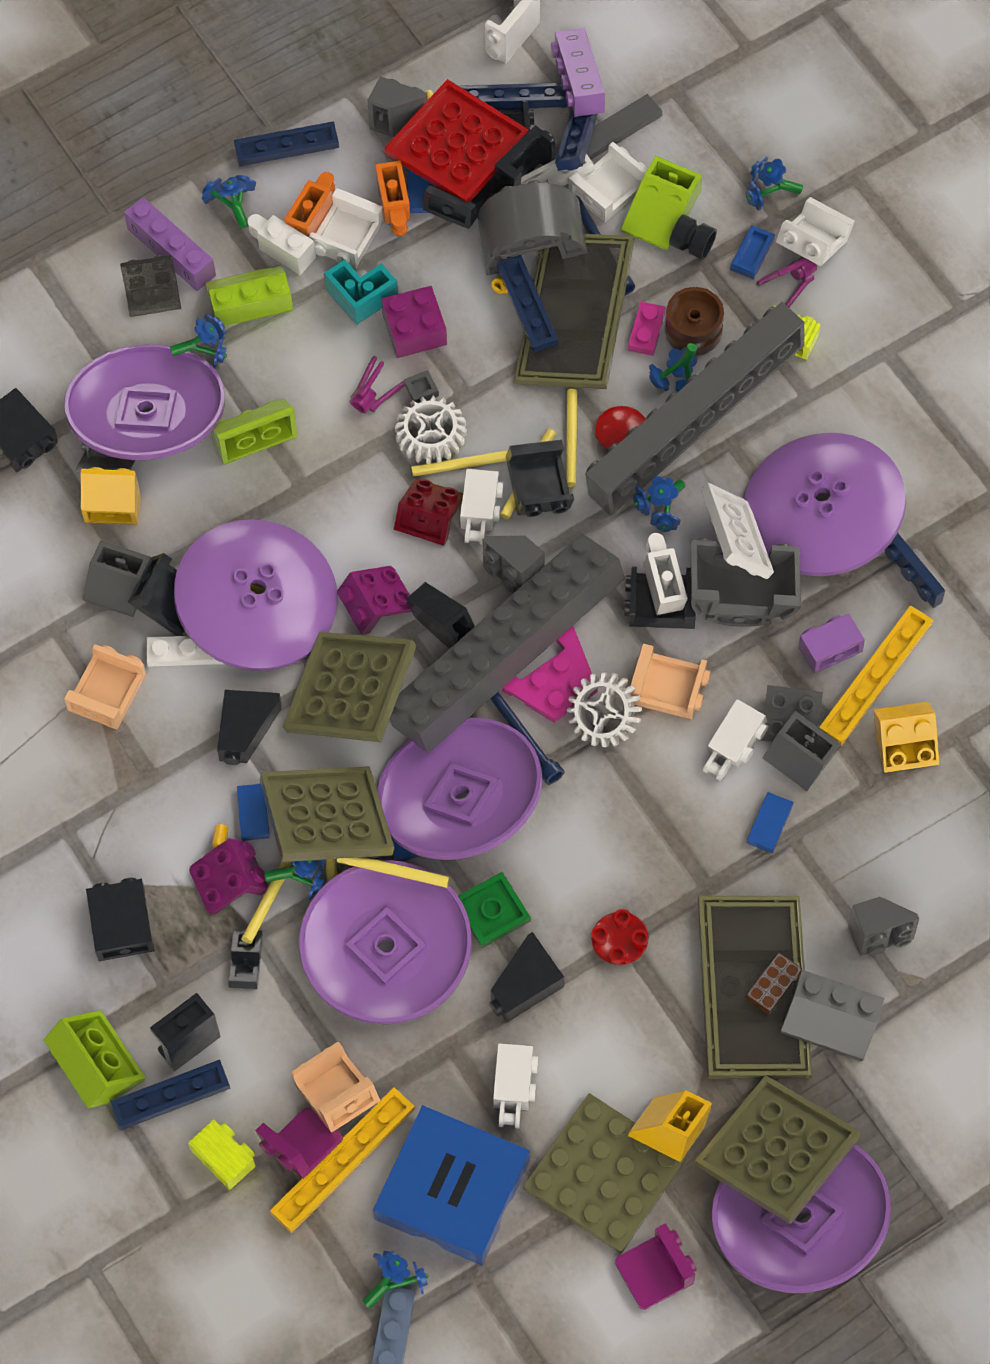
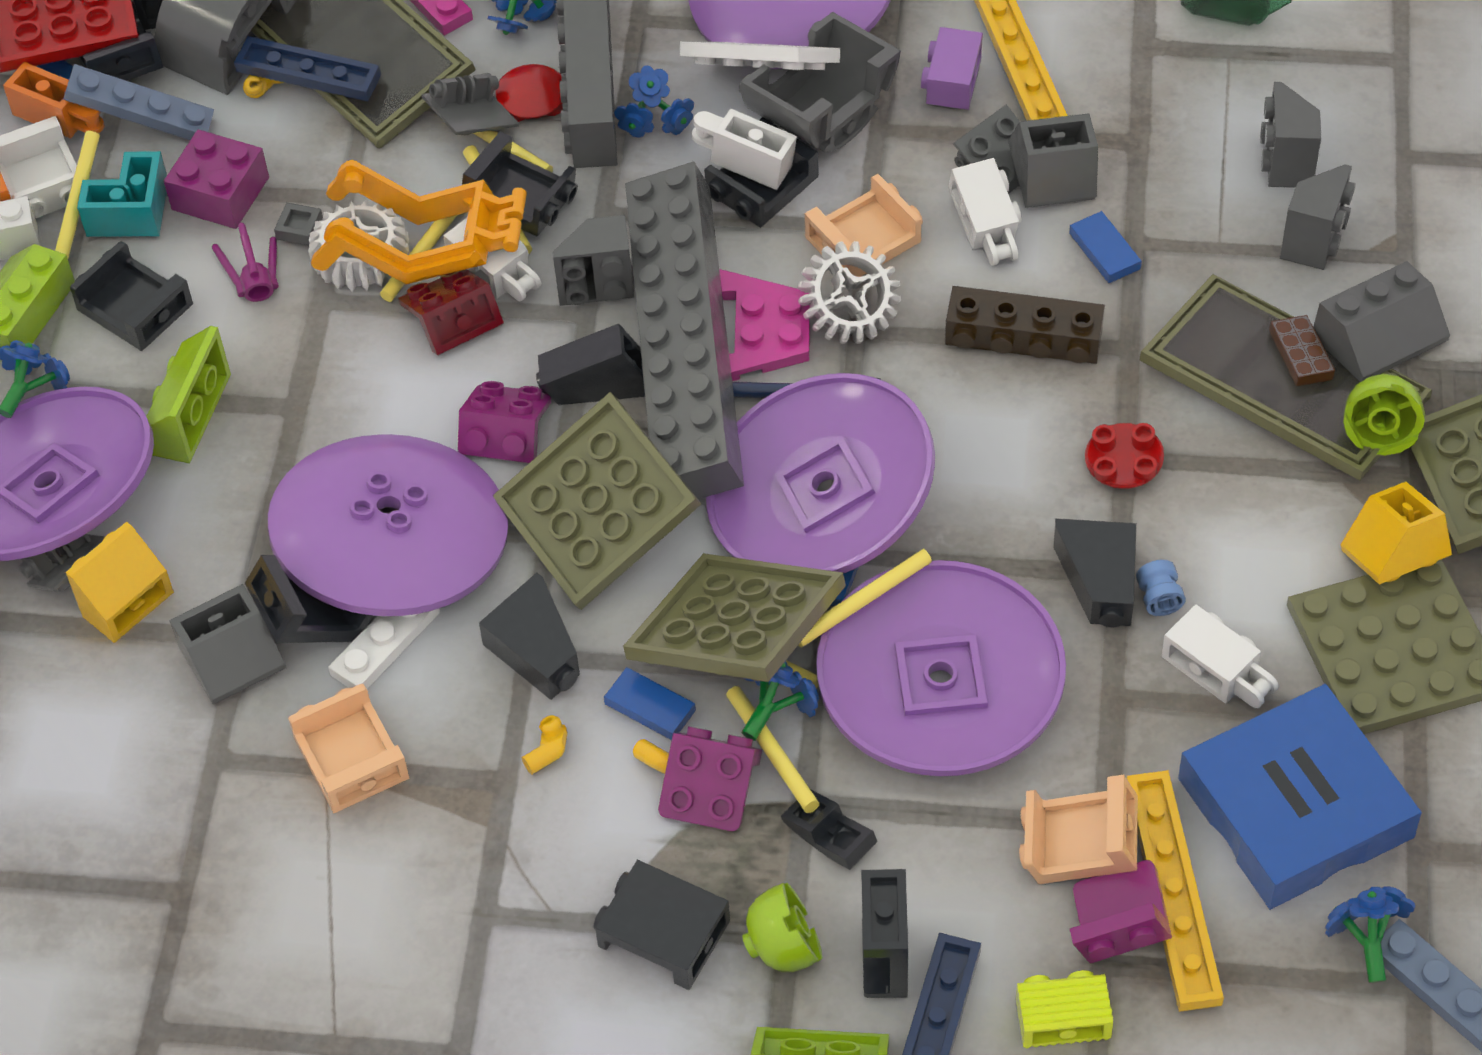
camera: 50 degrees left, 10 degrees down
(159, 981) = (780, 931): none -> lime cylinder
(187, 784) = (551, 745): none -> yellow arm
(301, 346) = (130, 297): none -> black panel
(348, 256) = (82, 172): none -> light yellow bar
(427, 240) = (137, 103): none -> sand blue plate
(484, 488) = (490, 225): none -> light orange piece
(493, 909) = (989, 540): green plate -> none
(538, 1020) = (1161, 591): none -> medium blue wheel
(574, 409) = (469, 104): none -> dark grey hinge
(668, 820) = (1024, 324): none -> dark brown brick
(752, 1058) = (1384, 414): none -> lime cylinder
(906, 736) = (1114, 75): yellow slope -> none
(929, 869) = (1290, 137): none -> dark grey slope

